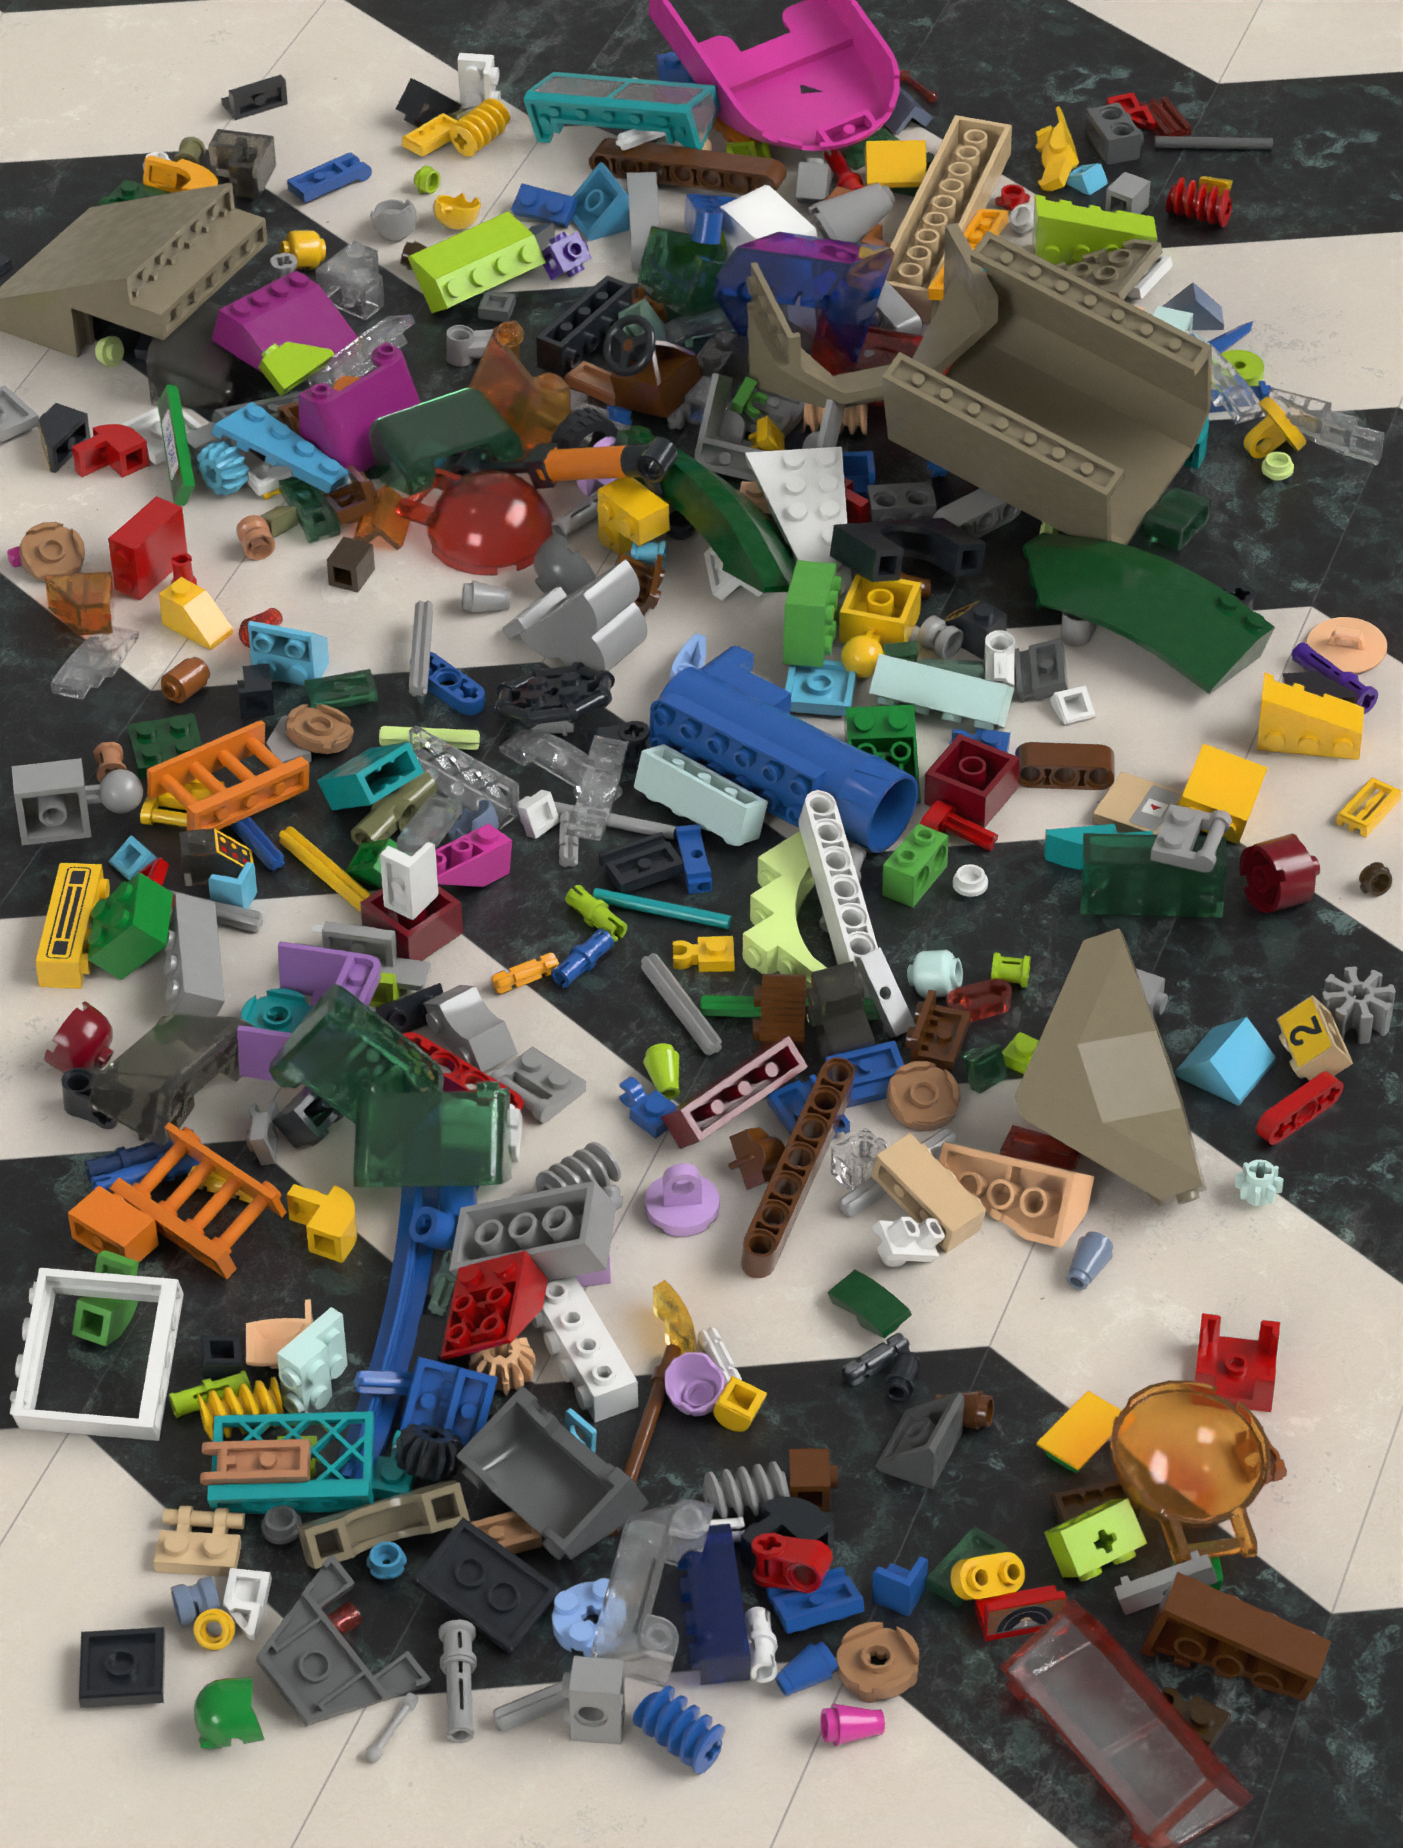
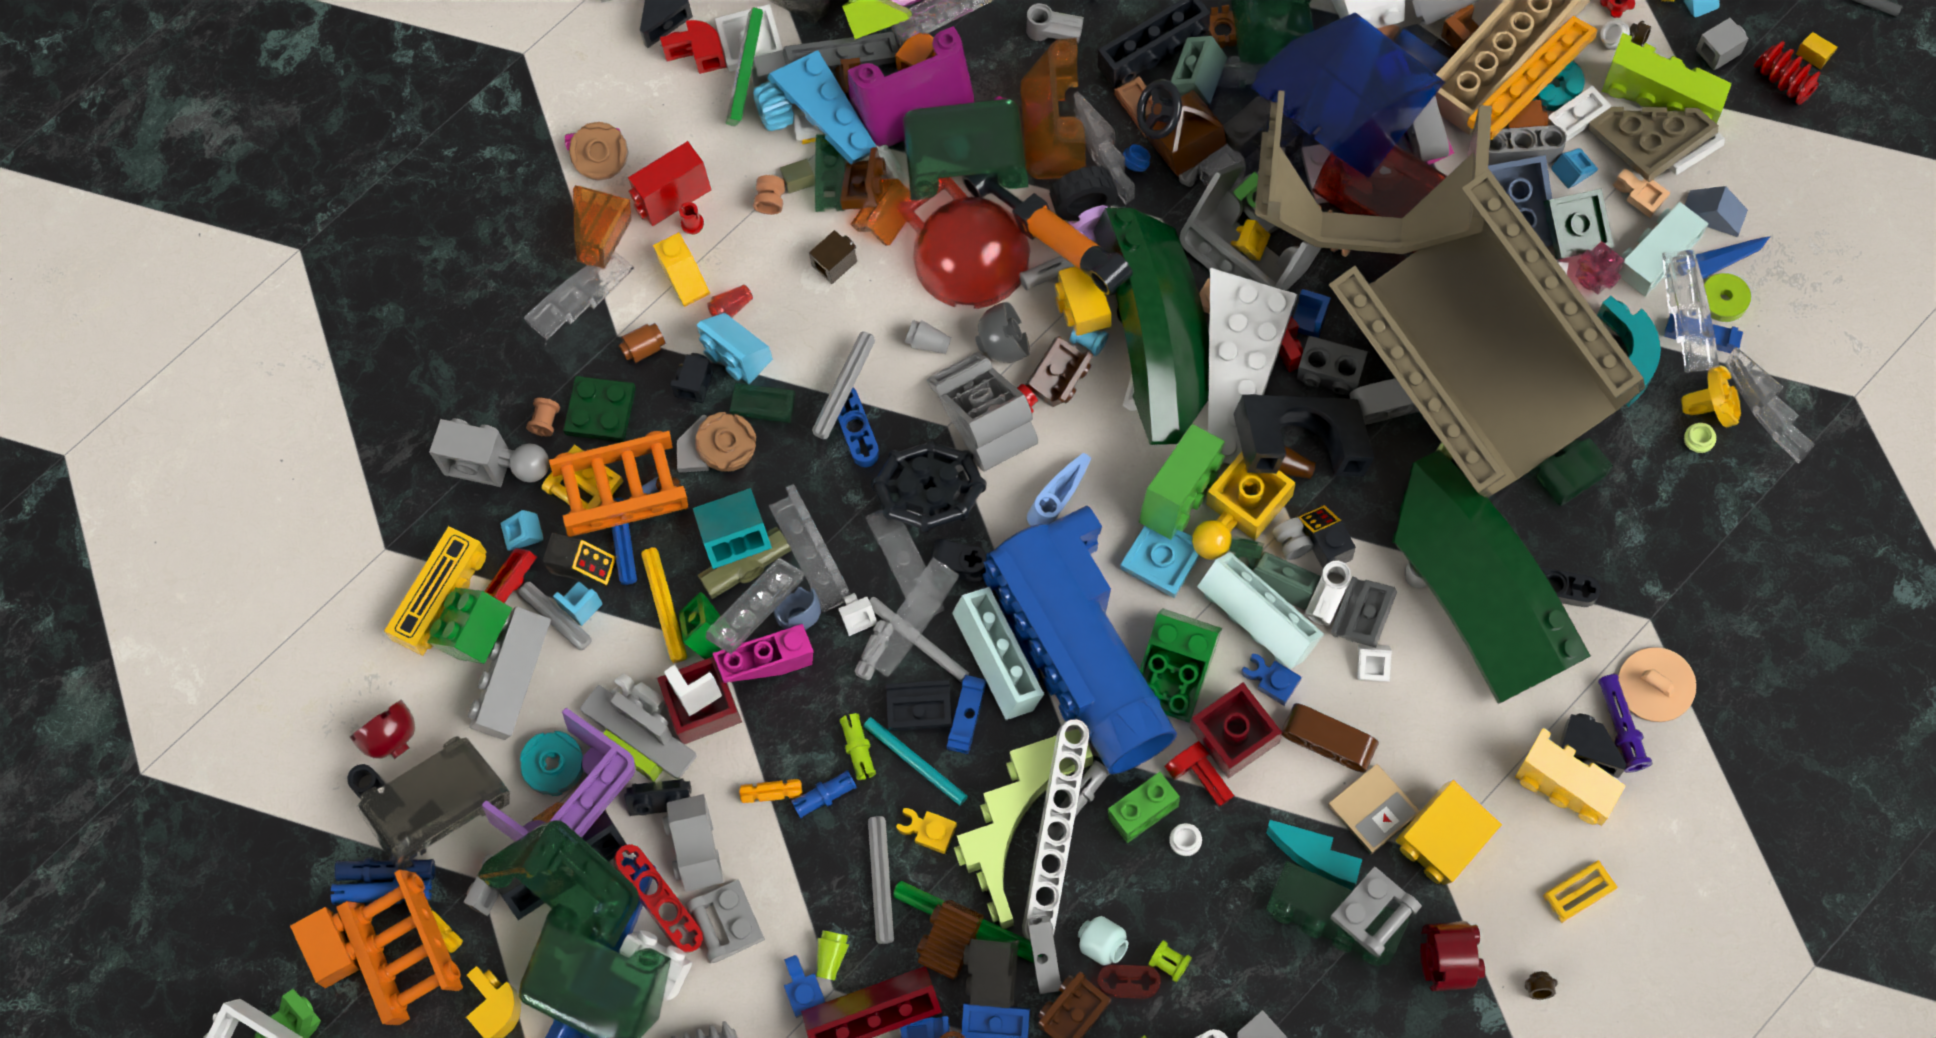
camera: 30 degrees right, 25 degrees up
(459, 738) = (812, 485): yellowish green axle -> none

